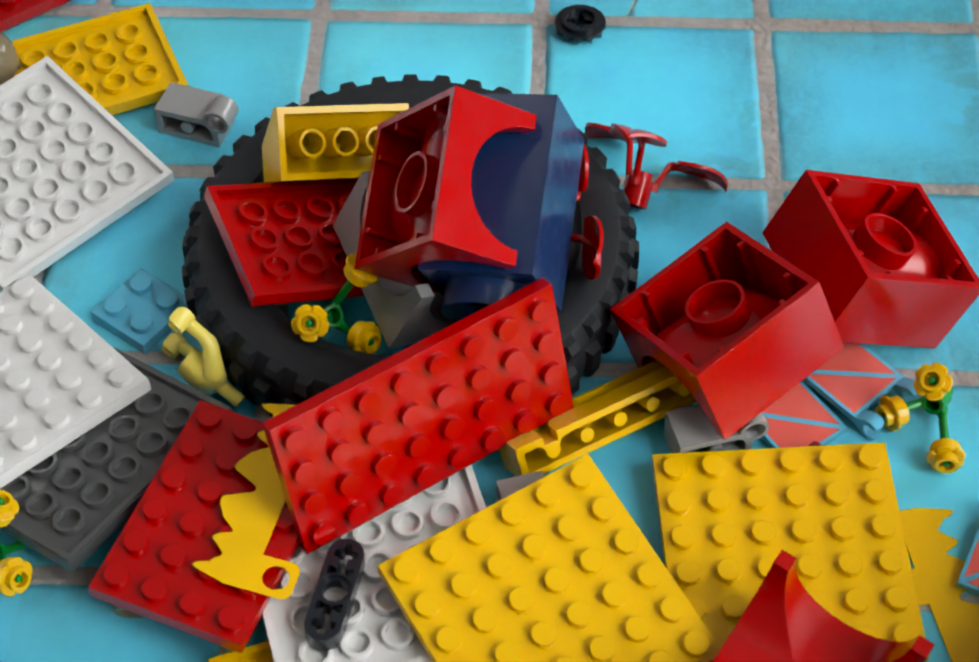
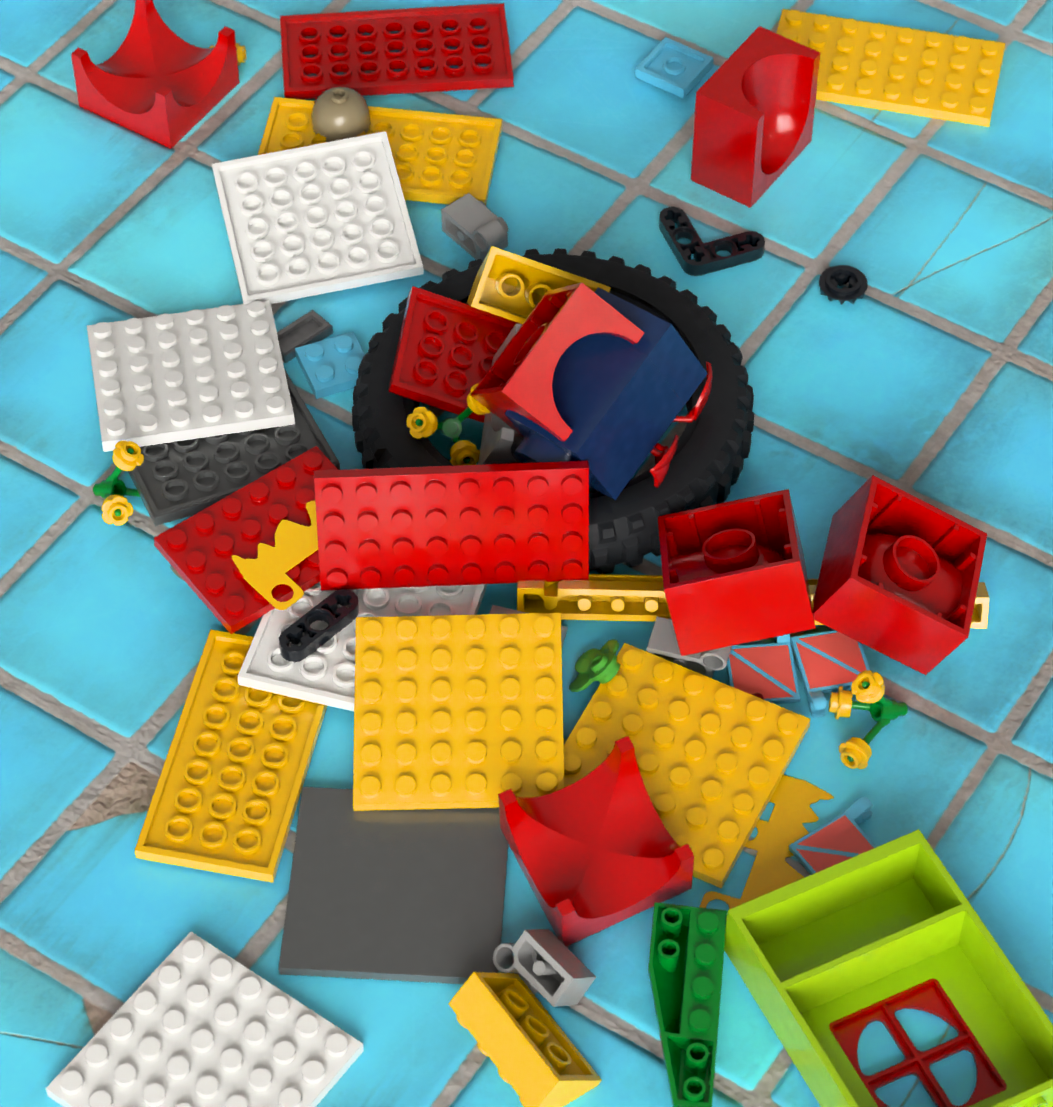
camera: 30 degrees right, 0 degrees up
(88, 291) = (302, 332): none -> flat silver tile
(199, 369) = (340, 419): light yellow piece -> none
(425, 54) = (743, 246): none -> black beam
(637, 182) = (779, 436): red plant -> none
(644, 490) = (596, 666): none -> bright green plate

